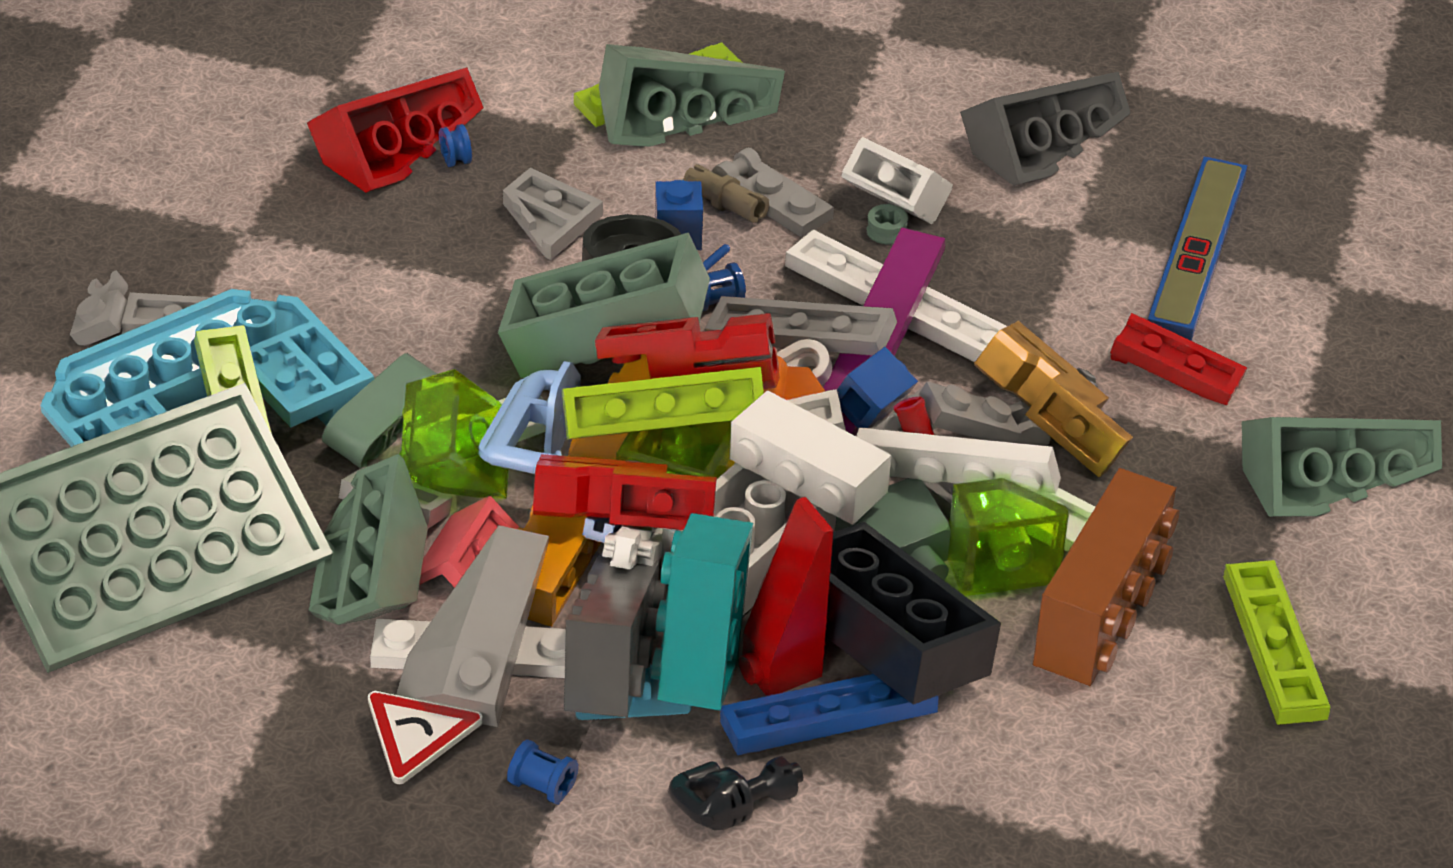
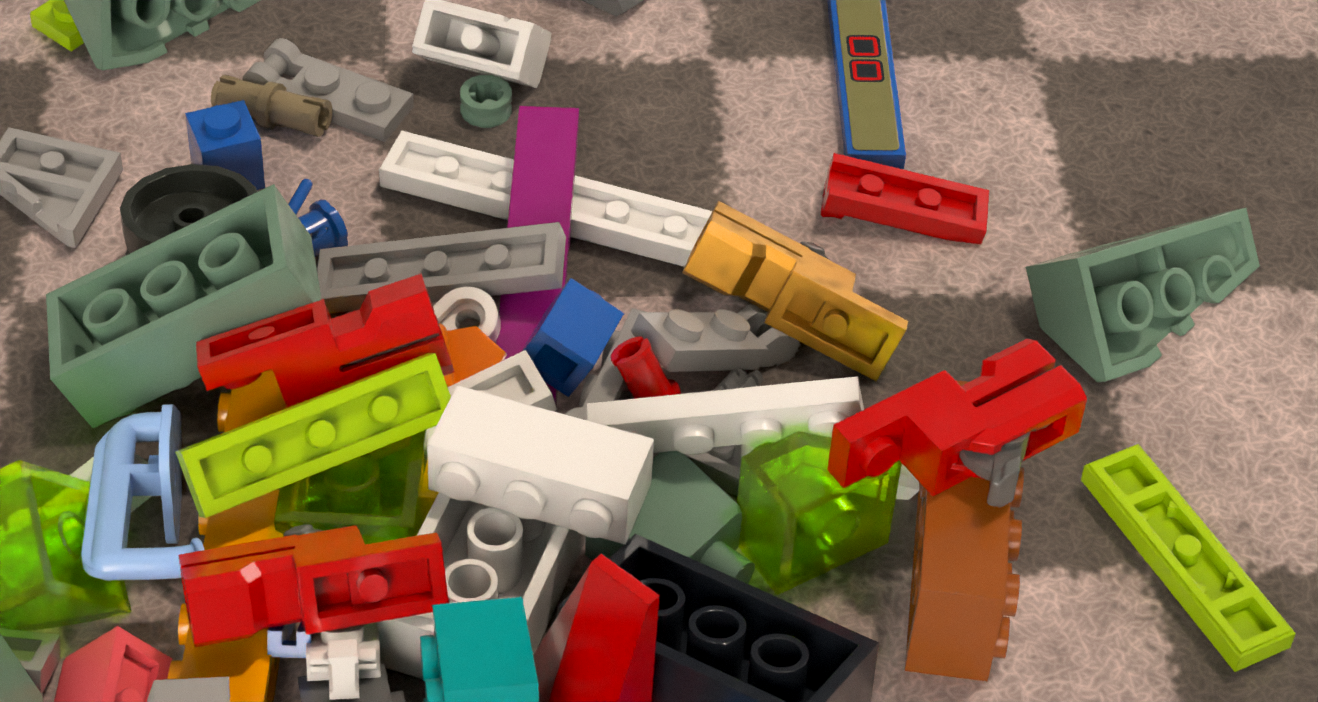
camera: 20 degrees left, 5 degrees up
(1112, 500) = (964, 430): none -> red plate

